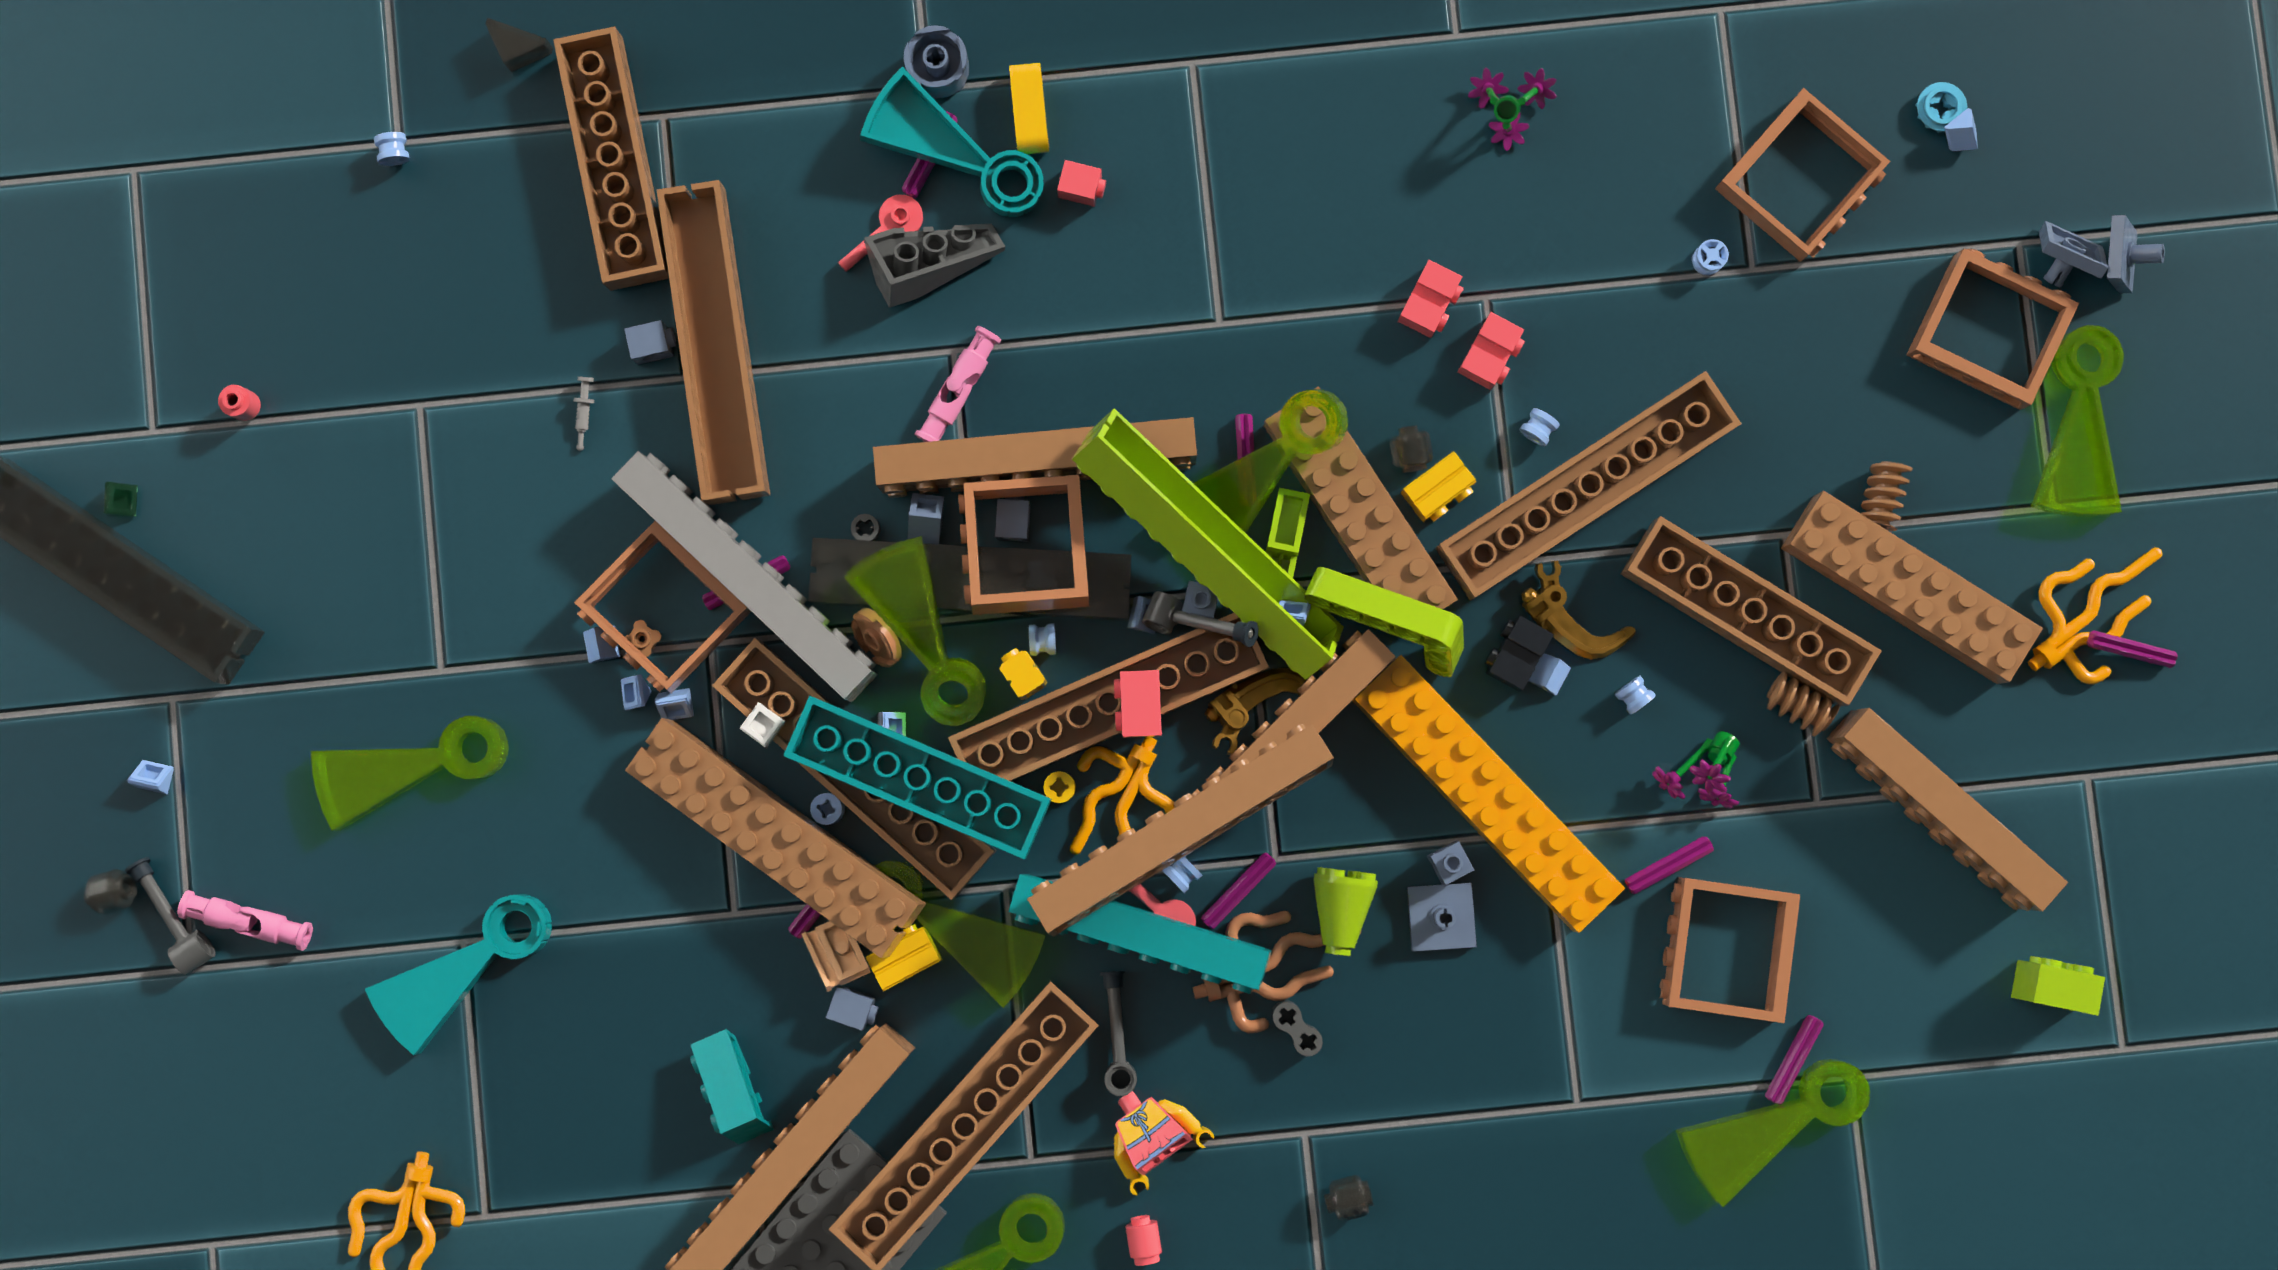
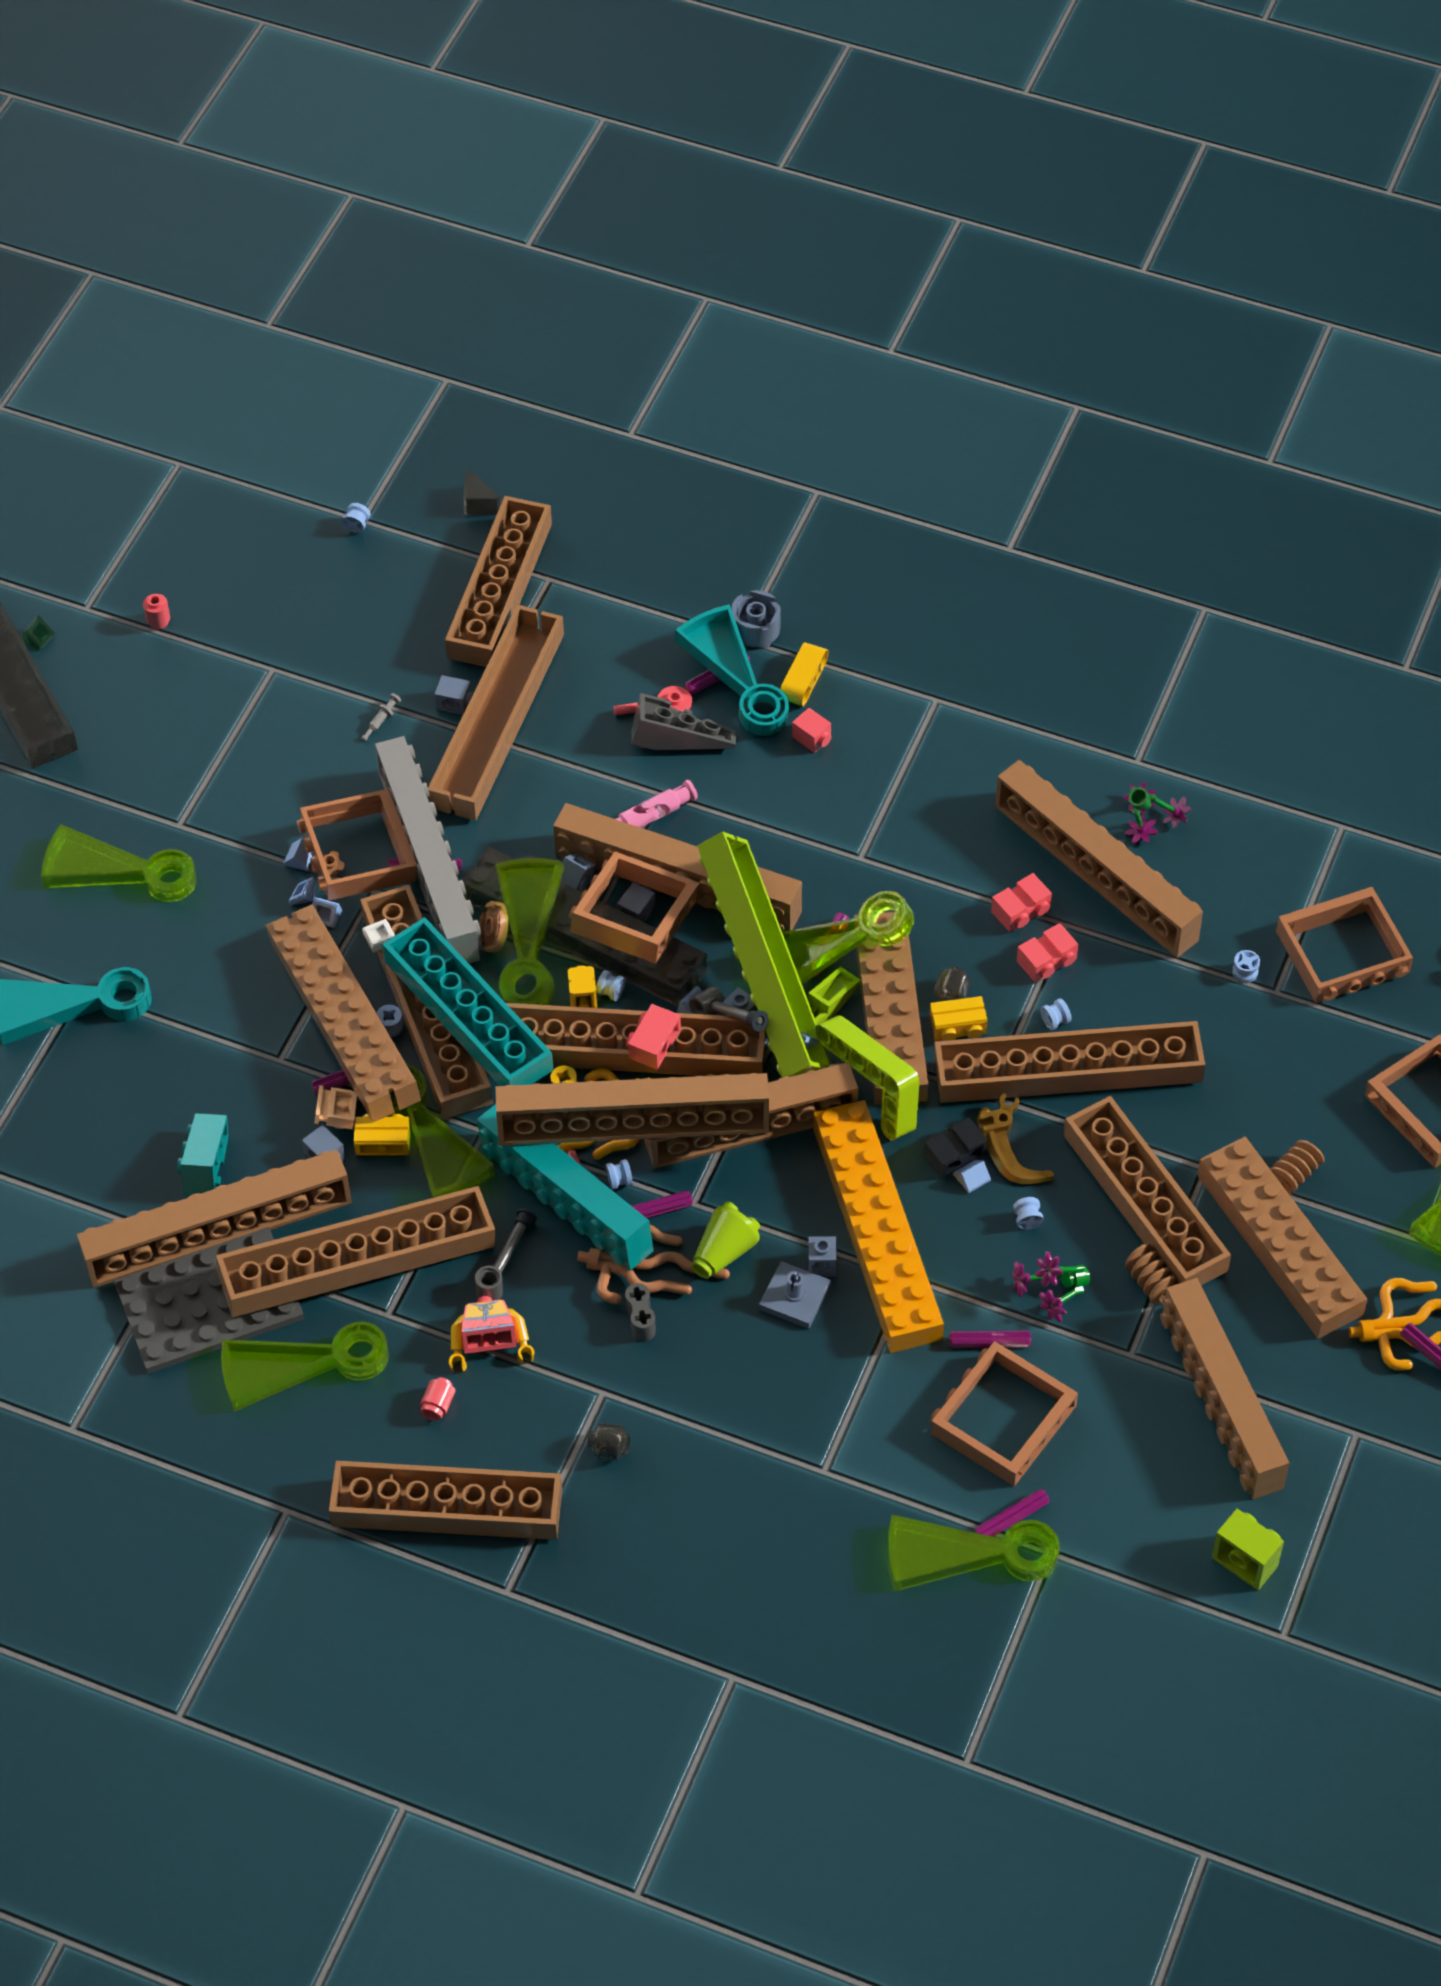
camera: 25 degrees right, 30 degrees down
(1490, 202) = (1099, 858): none -> medium nougat brick

